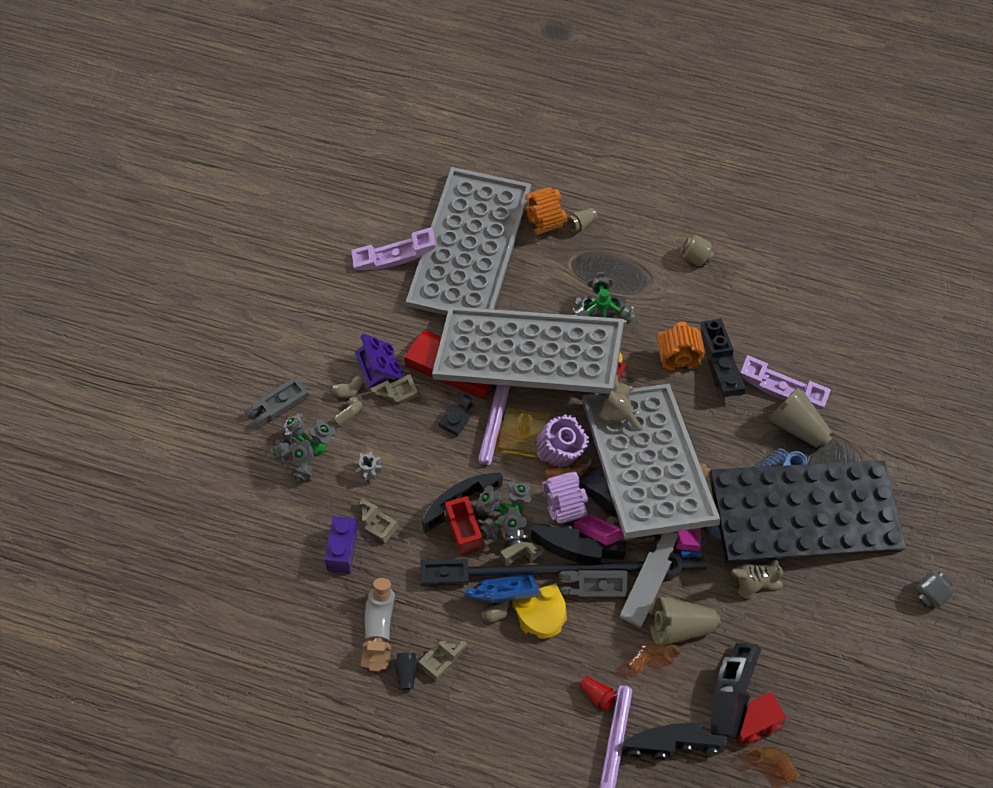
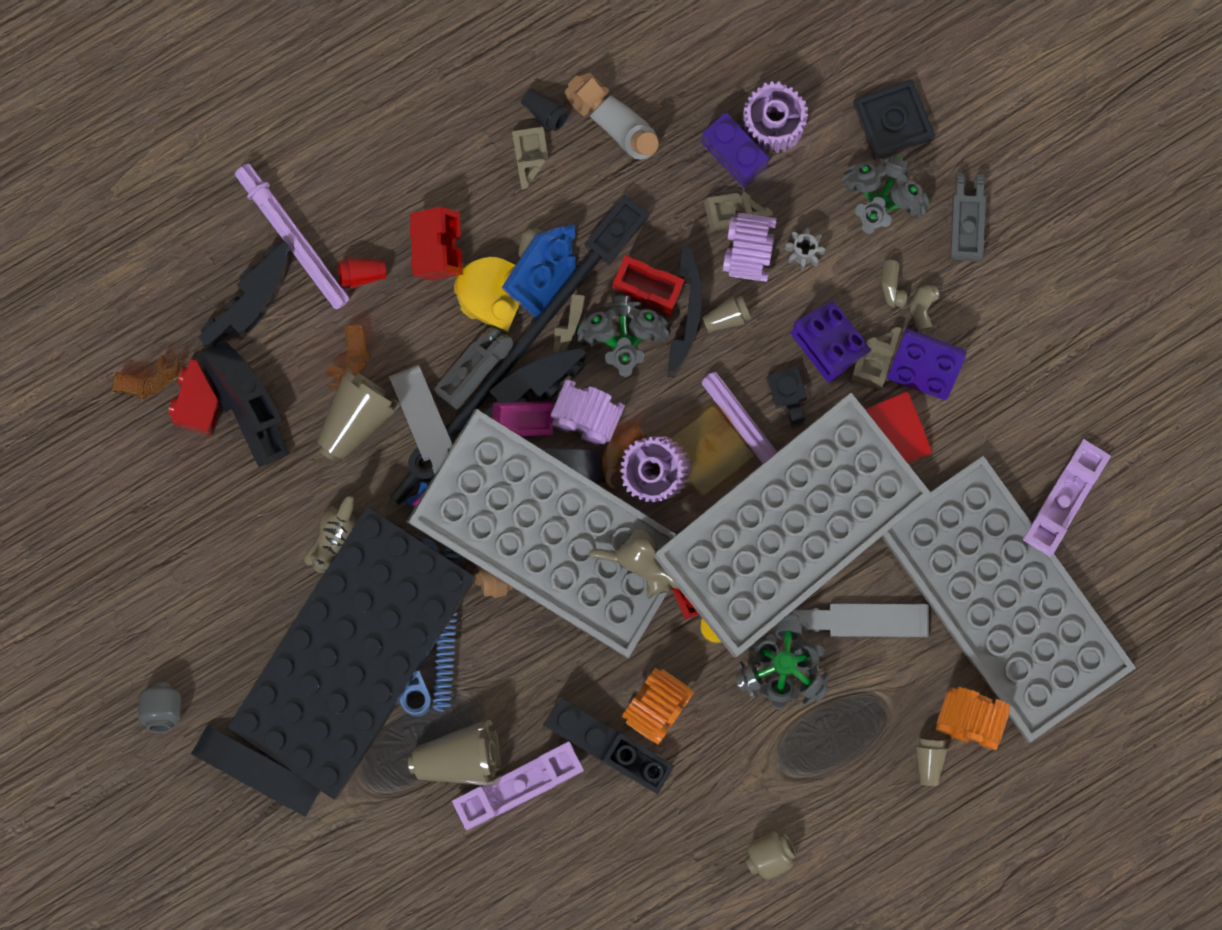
camera: 130 degrees right, 20 degrees up
(249, 482) = (893, 119): none -> black tile
(304, 548) = (786, 105): none -> lavender brick
(393, 489) = (750, 246): none -> lavender brick
(410, 414) = (829, 340): none -> dark purple bracket
(440, 477) = (728, 314): none -> dark tan cone
(535, 291) = (869, 620): none -> light grey piece
(545, 661) = (434, 243): none -> red brick
(914, 520) = (255, 771): none -> black slope

